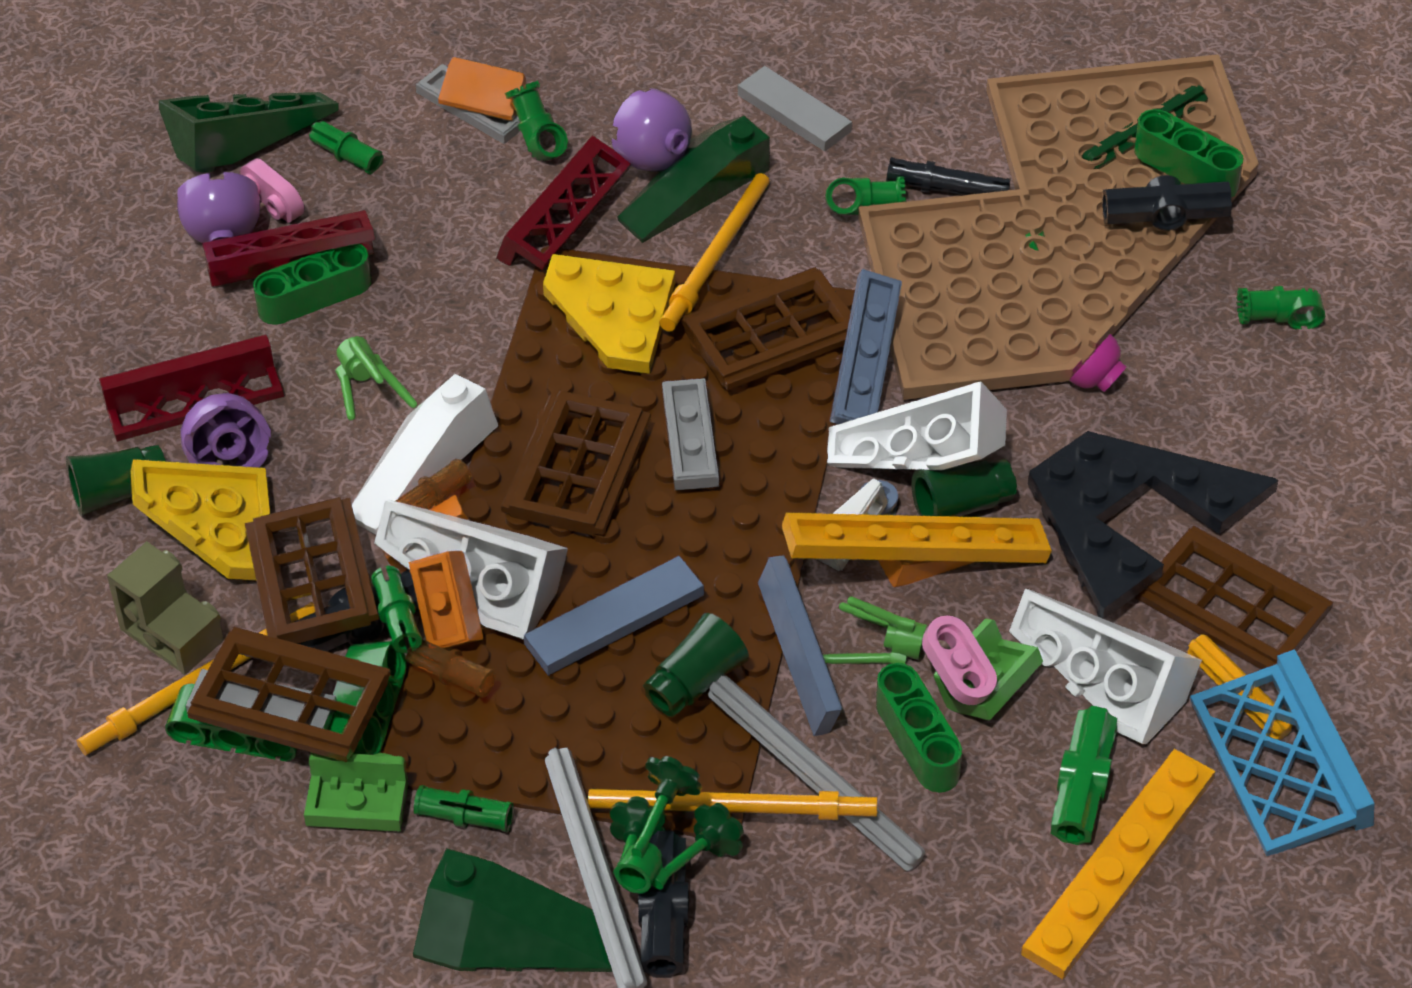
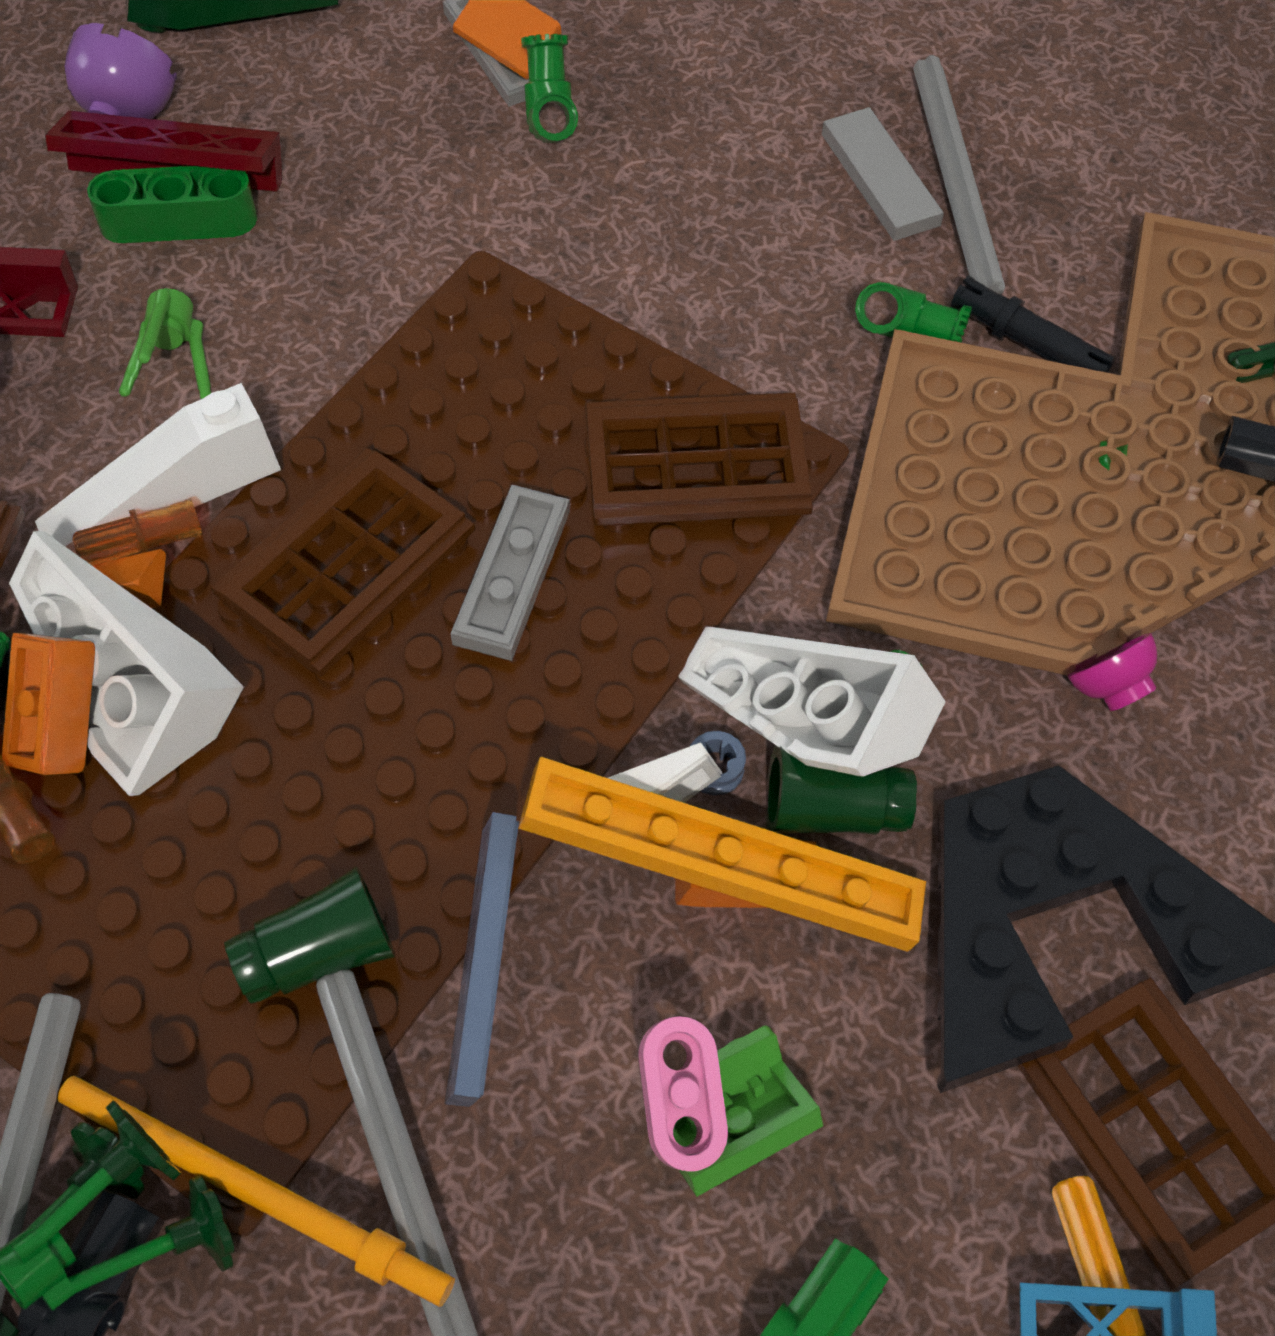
camera: 20 degrees right, 10 degrees up
(274, 191) = (201, 88): bright pink plate -> none
(346, 147) = (320, 51): green axle -> none
(559, 196) = (520, 191): dark red fence -> none
(612, 306) = (511, 360): yellow plate -> none
(613, 615) = (261, 806): sand blue tile -> none
(652, 130) = (675, 142): medium lavender cylinder -> none
(686, 294) = (606, 375): light orange bar -> none
(709, 170) = (716, 222): dark green wedge -> none
(845, 90) = (958, 174): none -> light grey axle
(866, 347) = (803, 533): sand blue tile -> none
(902, 635) = (641, 995): bright green plant -> none
(918, 727) = (592, 1129): green beam -> none
(1108, 664) = (938, 1194): white wedge -> none

